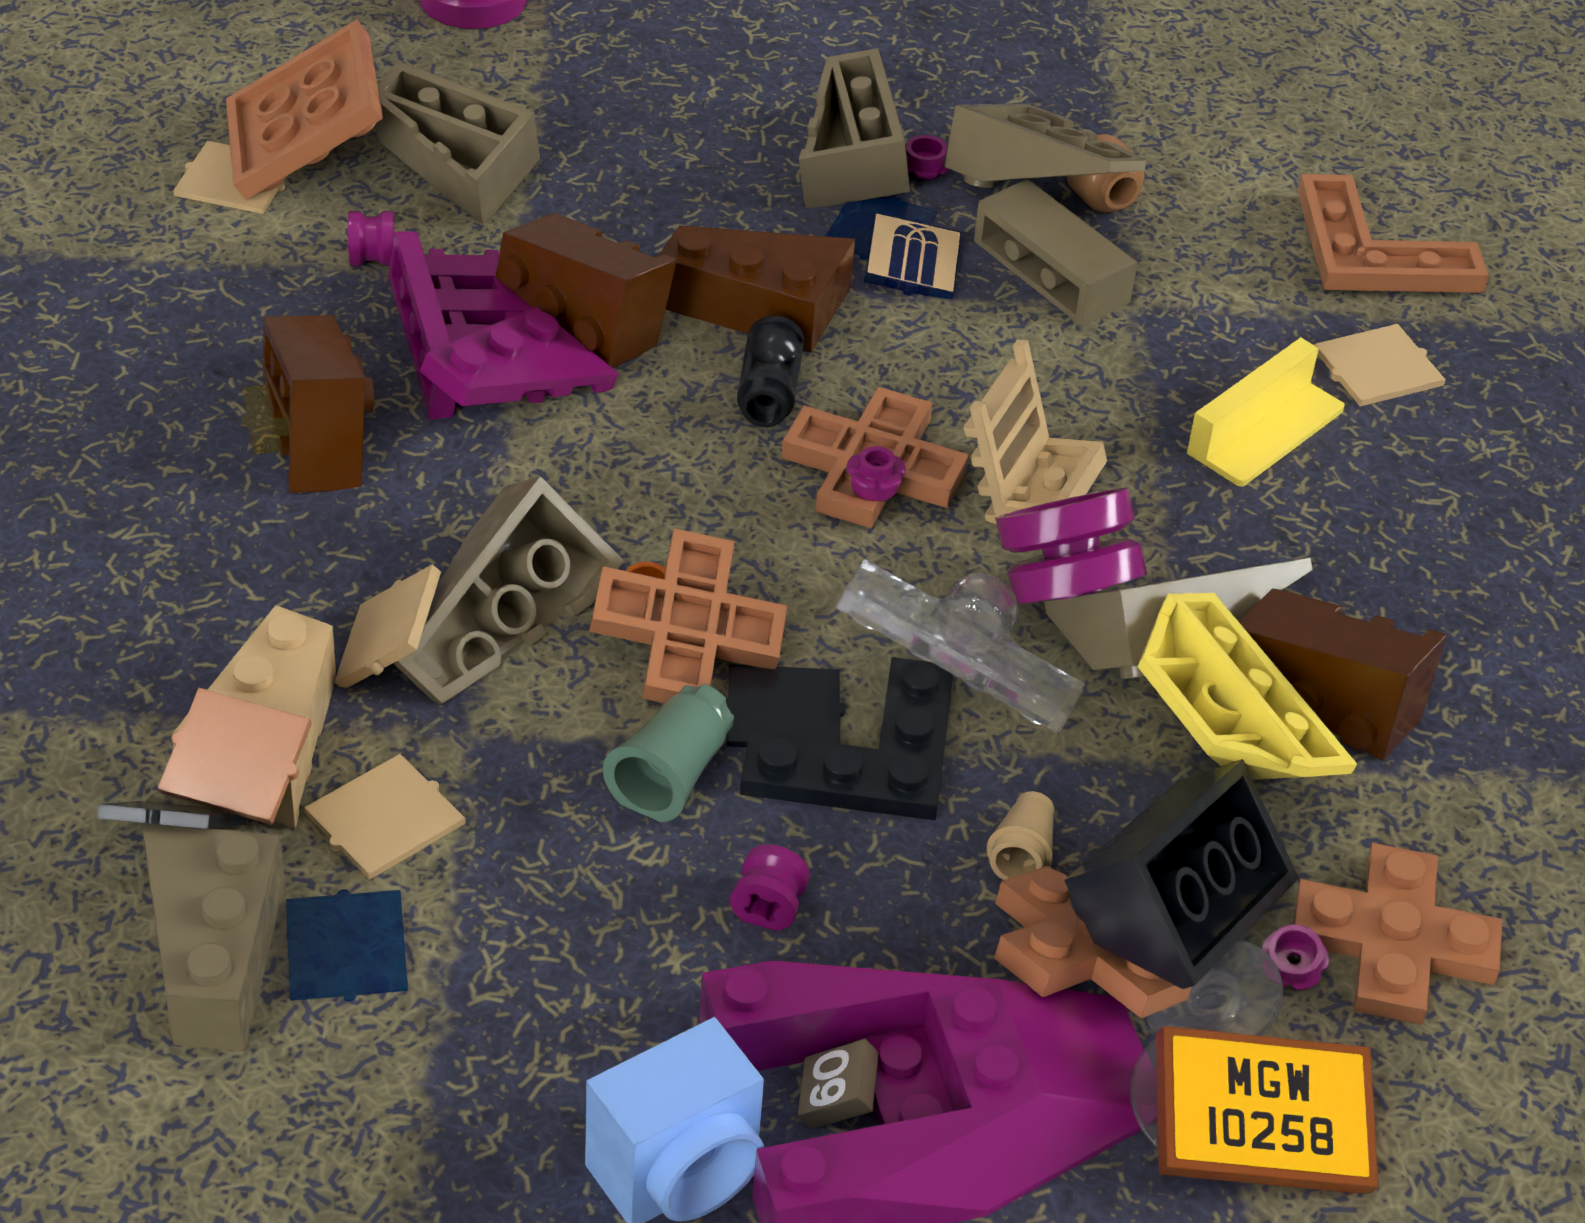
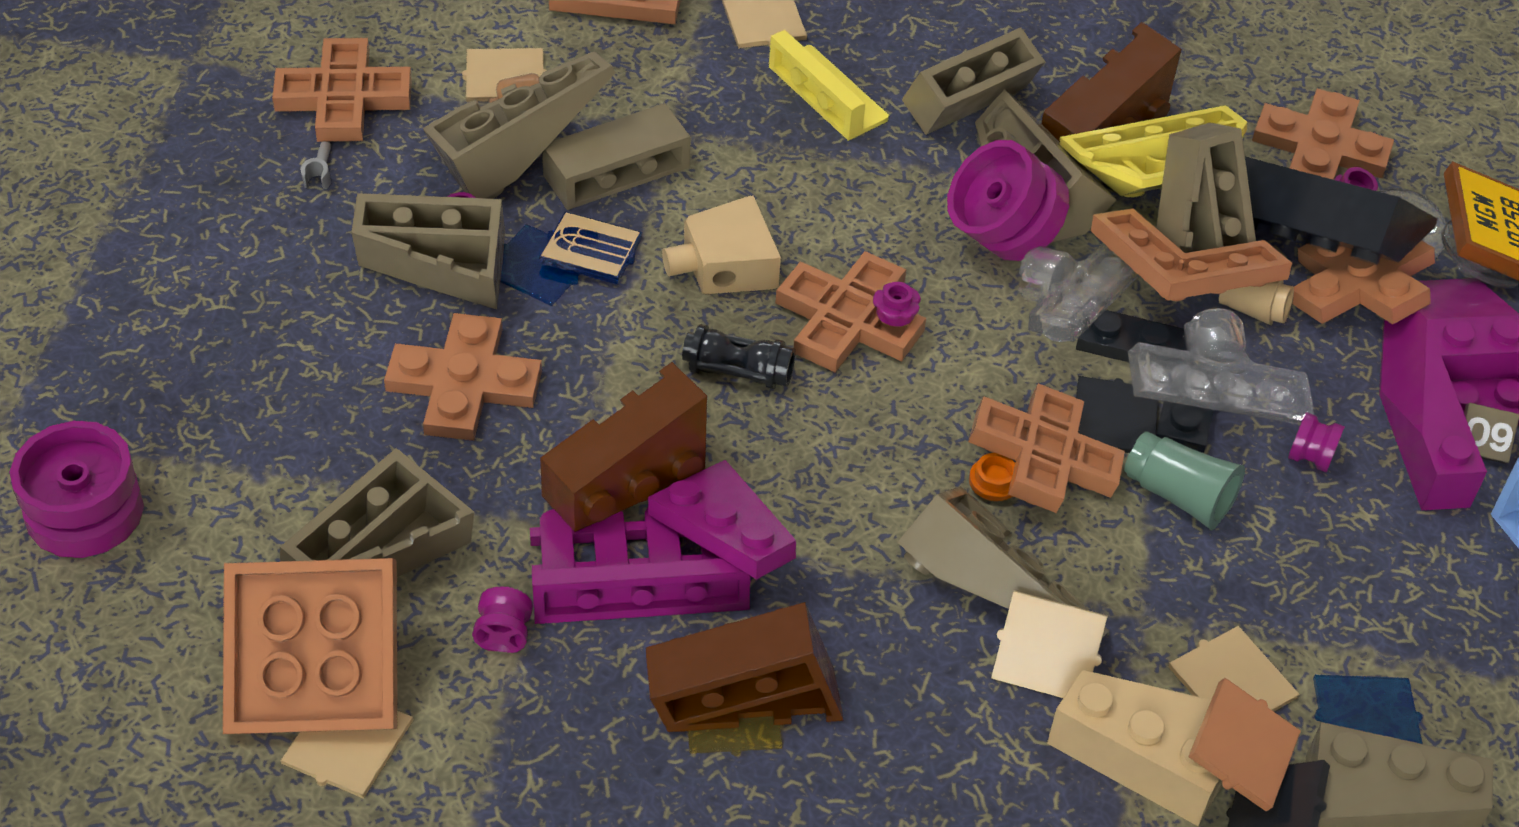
camera: 80 degrees left, 5 degrees up
(696, 185) = (463, 376): none -> nougat plate
(750, 275) = (630, 340): reddish brown wedge -> none
(836, 764) = (1219, 373): none -> clear plate
(938, 347) = (727, 249): none -> tan torso
(952, 64) = (317, 166): none -> light grey hand
(989, 705) = (1189, 274): none -> nougat plate
(1015, 448) = (884, 212): tan plate -> none
(1083, 57) = (342, 89): none -> nougat plate
(1117, 727) = (1206, 189): none -> dark tan wedge
(1178, 173) = (490, 66): none -> tan piece
(1309, 520) = (972, 80): none -> dark tan brick

